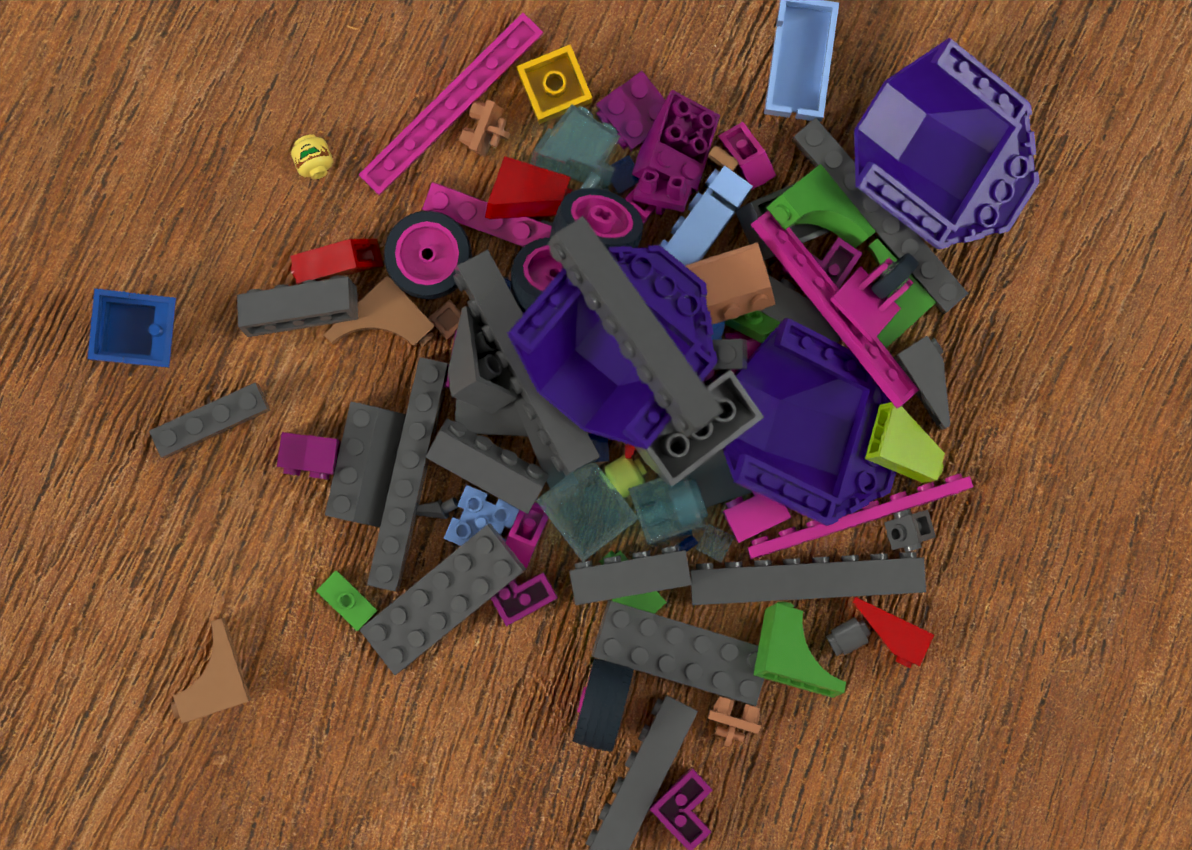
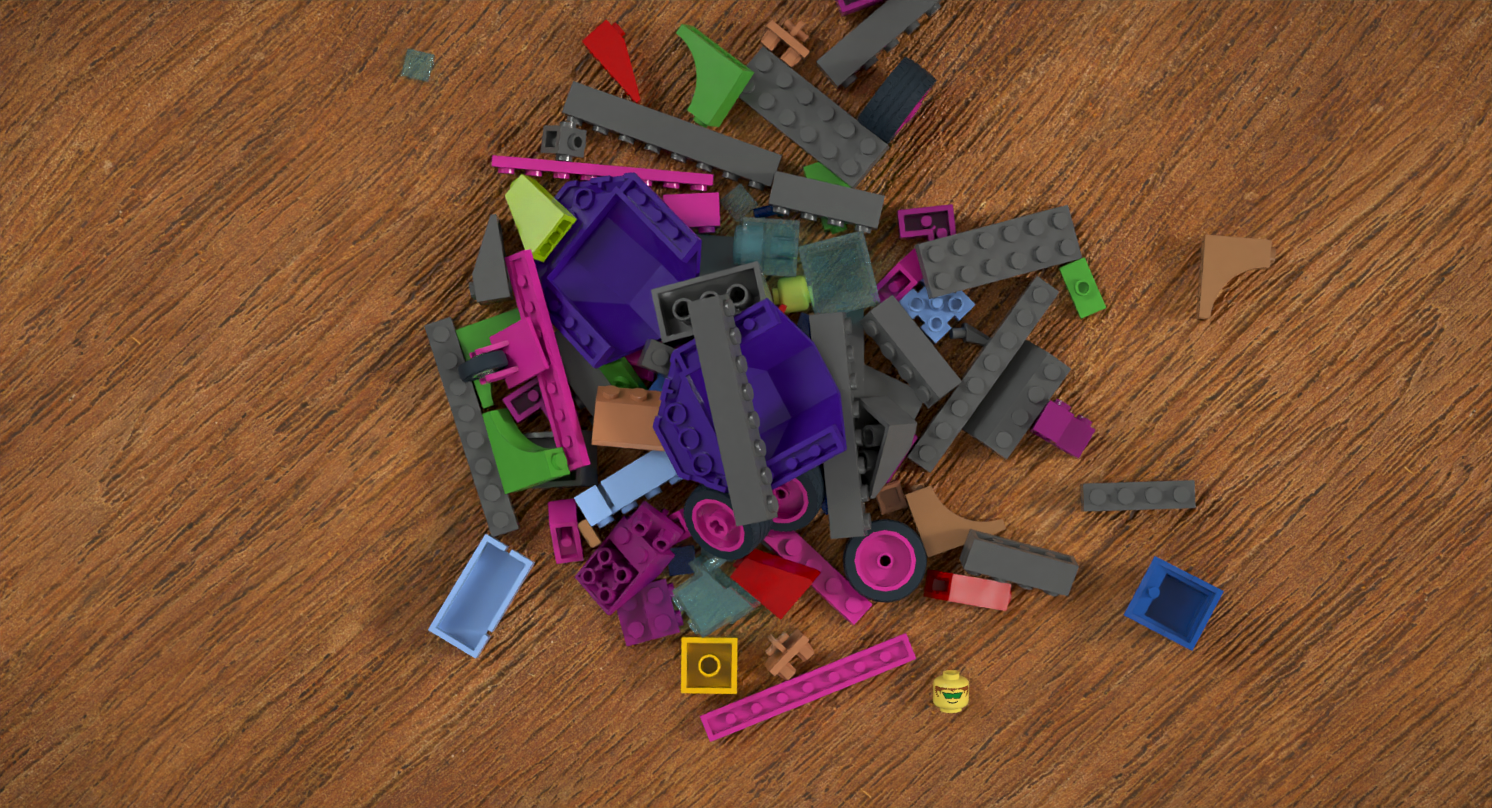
camera: 155 degrees left, 0 degrees up
(848, 636) = (656, 71): dark grey brick -> none
(947, 148) = (388, 459): dark purple windscreen -> none
(1083, 546) = (418, 65): none -> clear light blue tile

